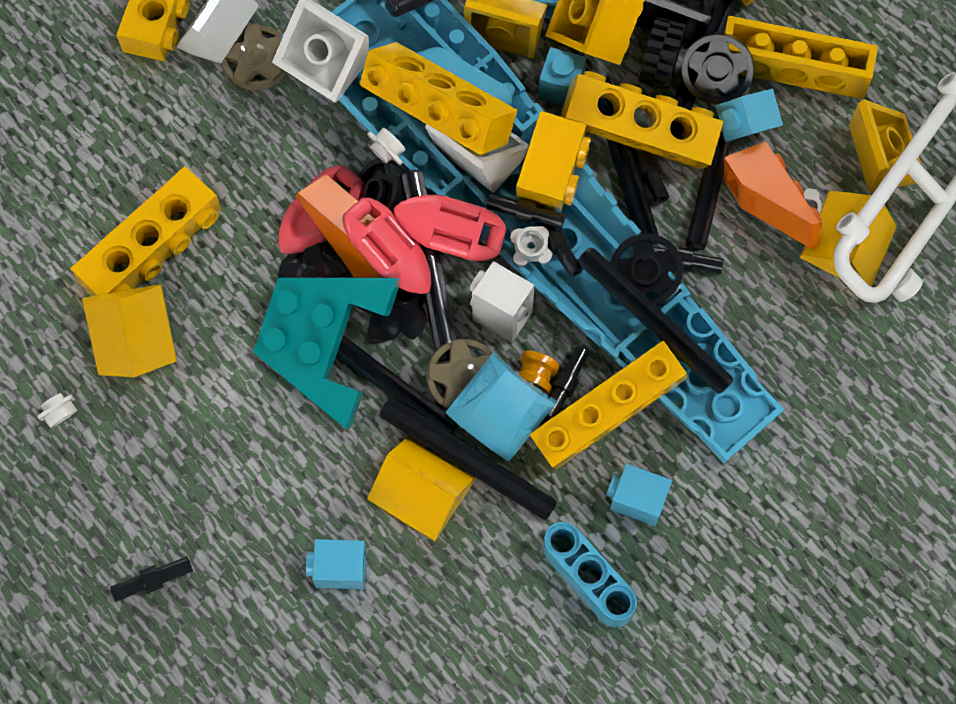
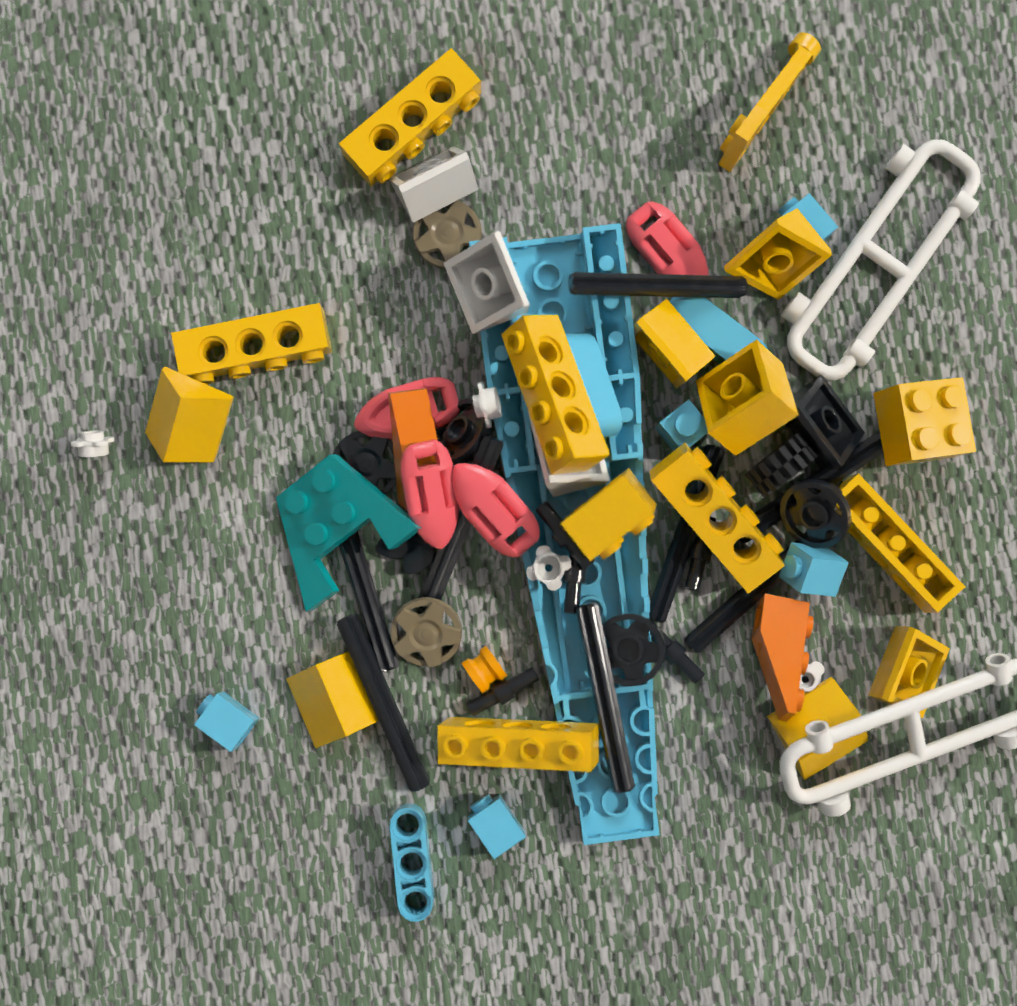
camera: 30 degrees right, 15 degrees up
(151, 579) = (80, 631): black bar -> none
(500, 407) = (433, 683): medium azure slope -> none
(501, 301) = (493, 595): white brick -> none

